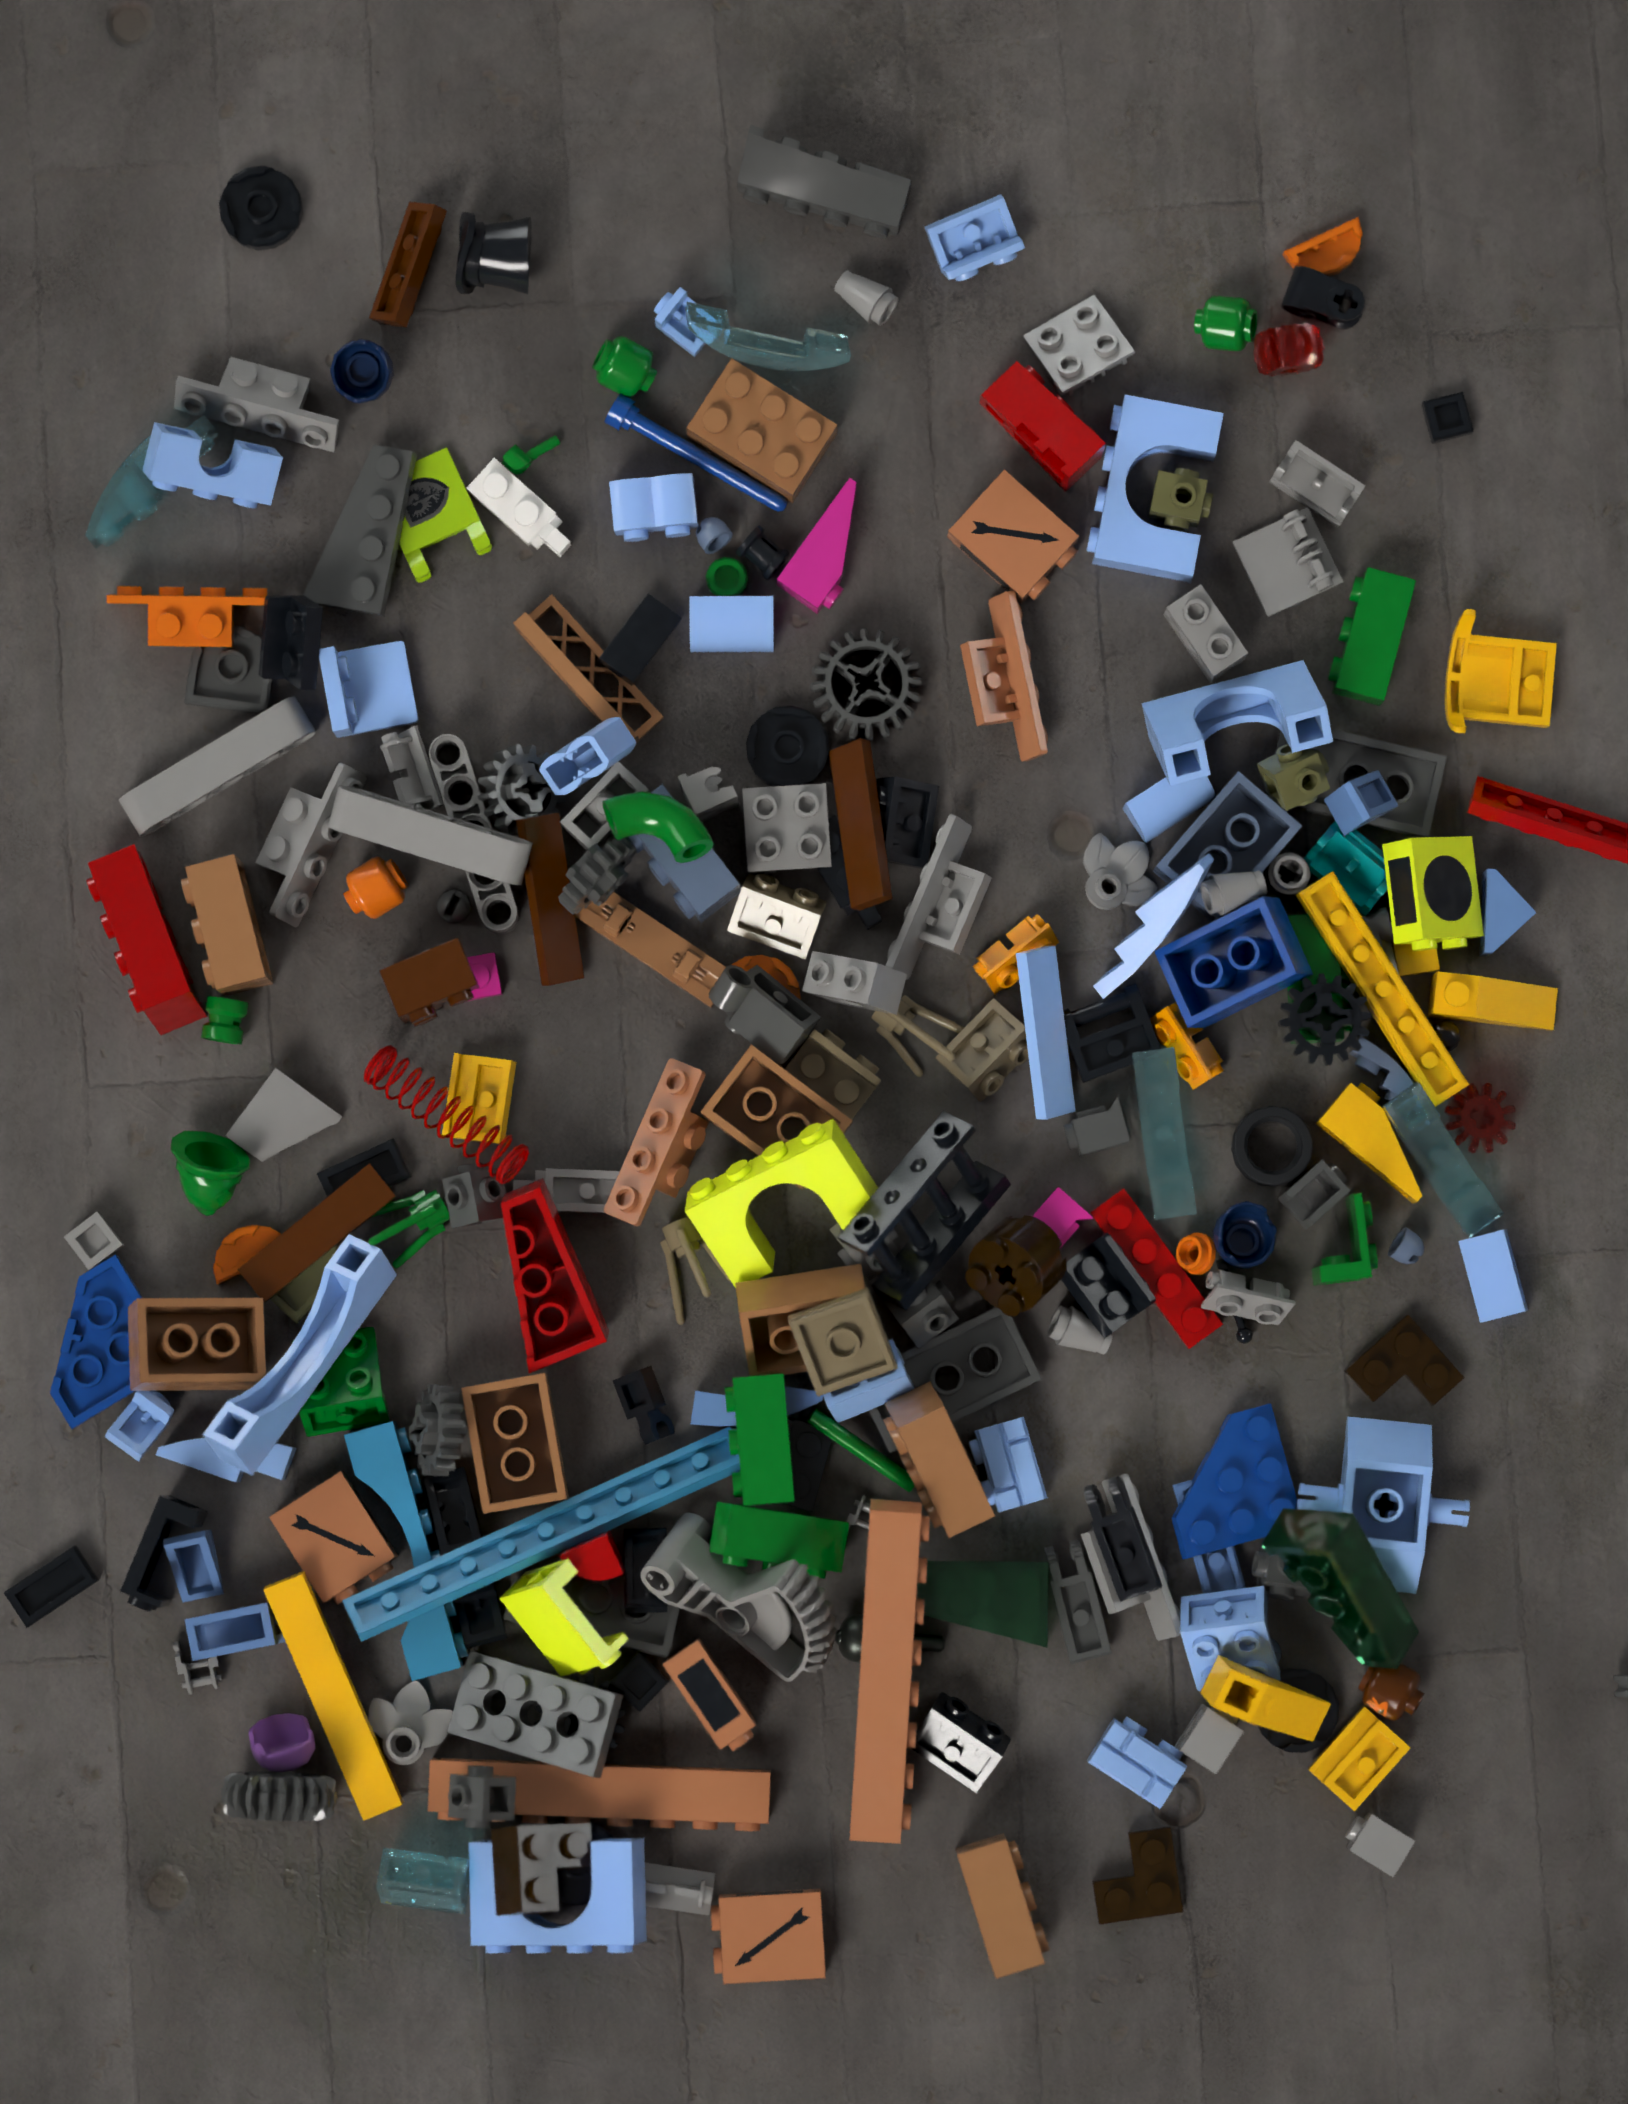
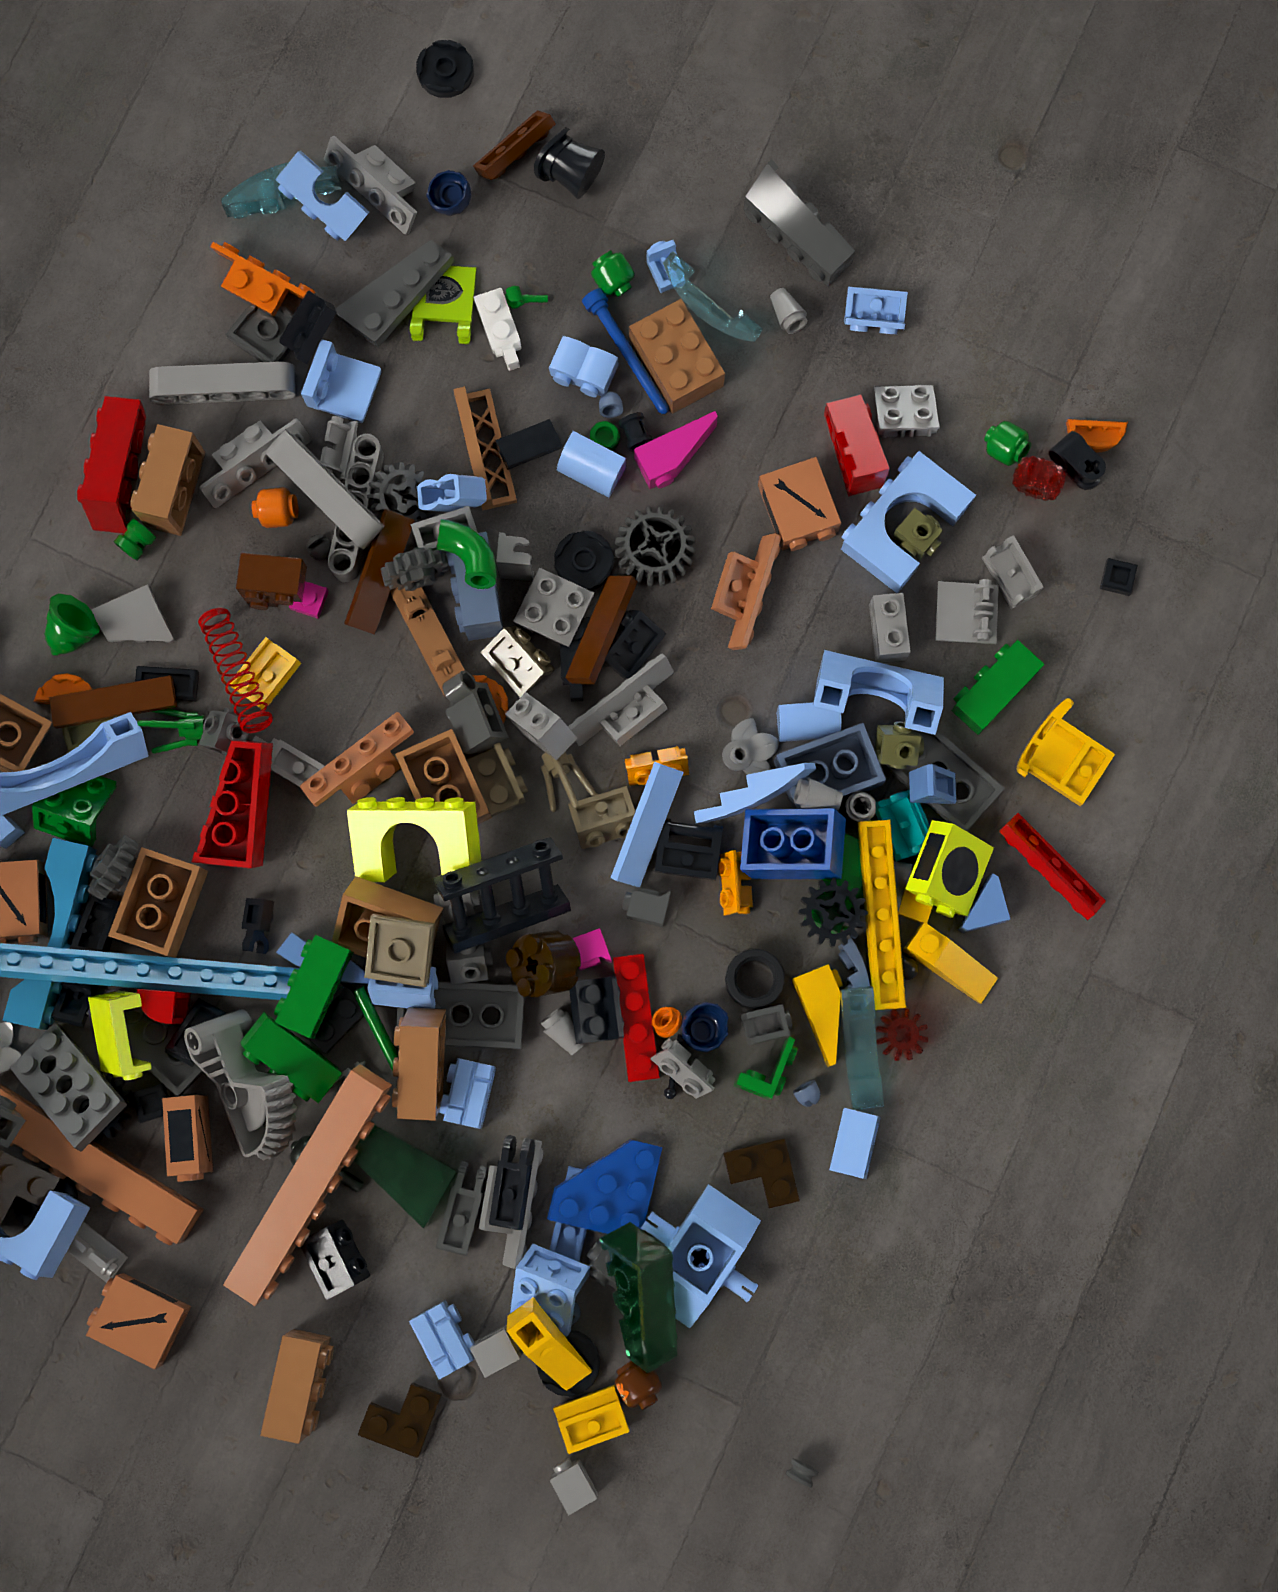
camera: 30 degrees right, 5 degrees down
(684, 1240) = (339, 835): dark tan plant -> none
(1163, 1133) = (688, 931): clear light blue slope -> none

